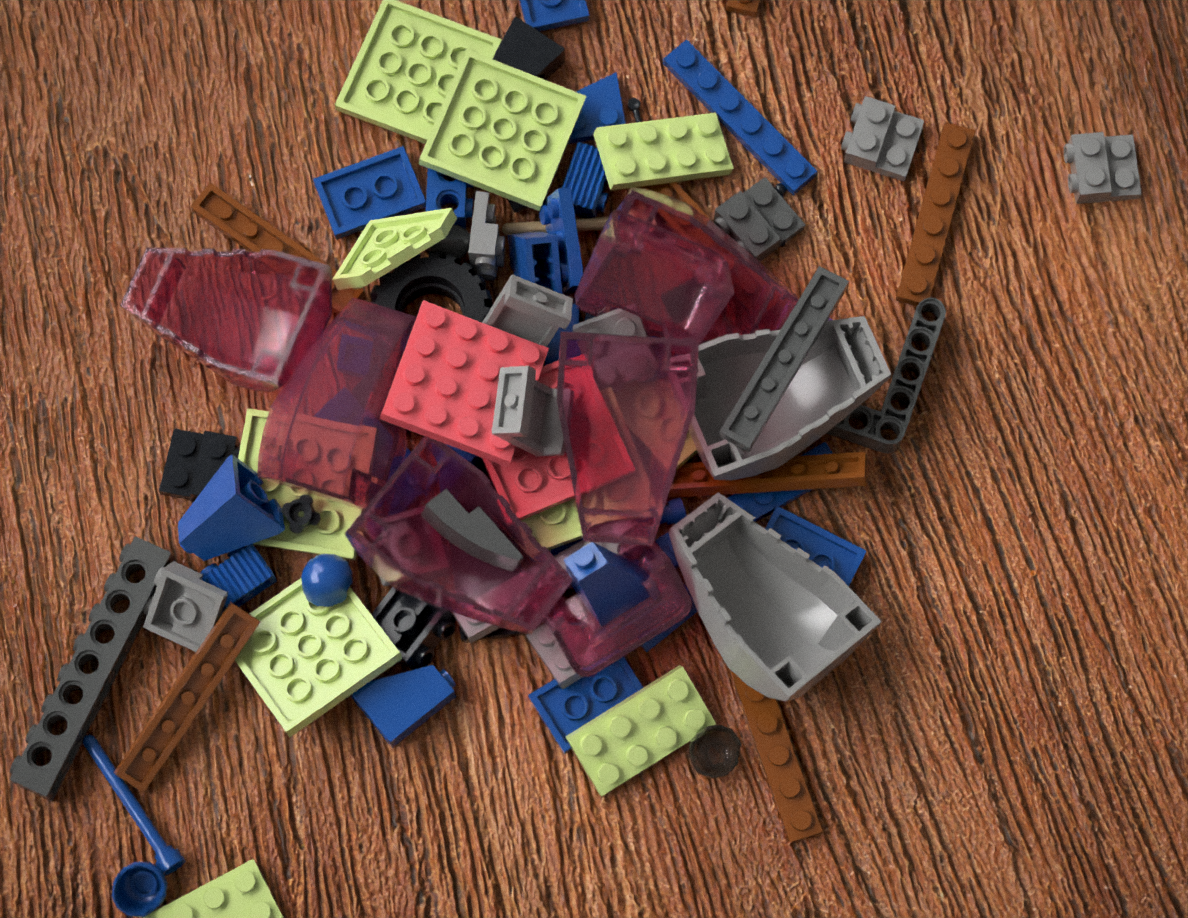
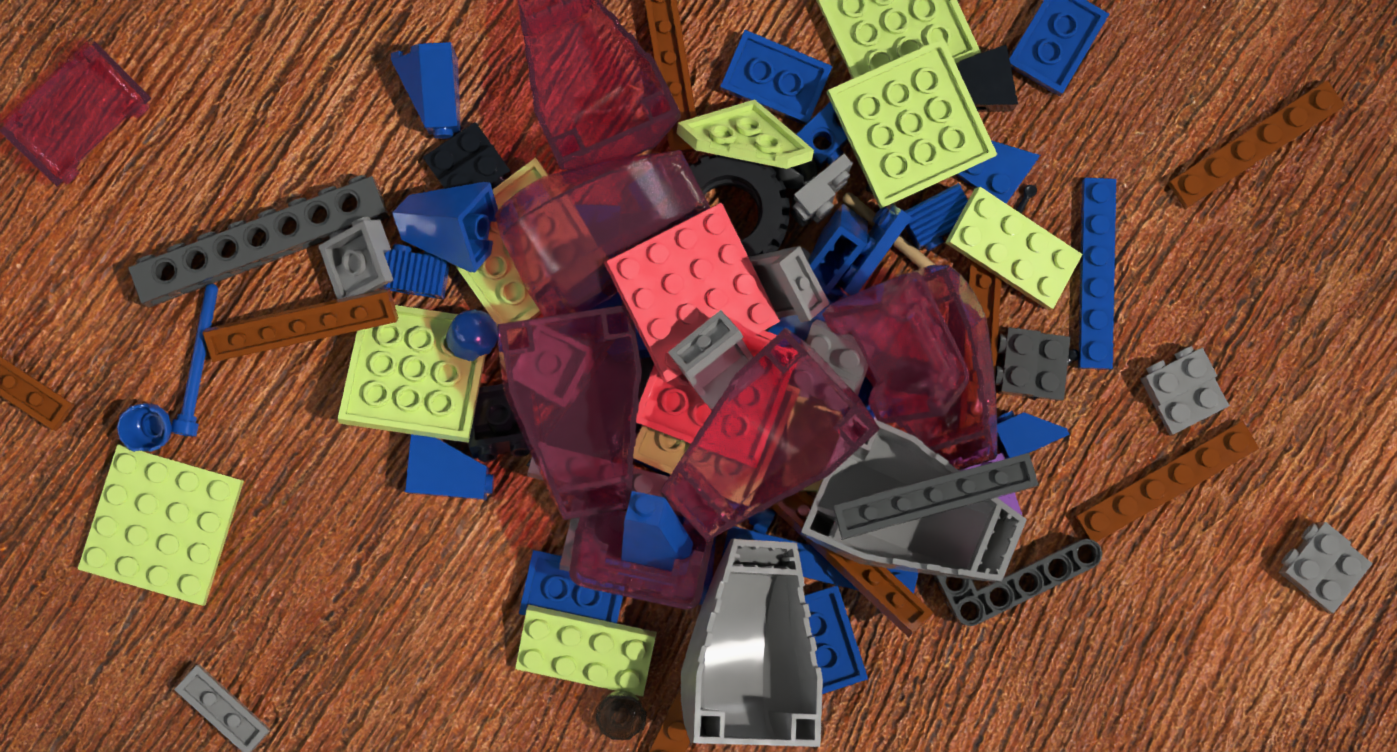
camera: 40 degrees right, 10 degrees up
(114, 431) = (433, 85): none -> blue slope
(292, 509) = (490, 275): black plate -> none
(471, 532) = (596, 402): dark grey slope -> none
(802, 265) = (1025, 433): none -> blue slope

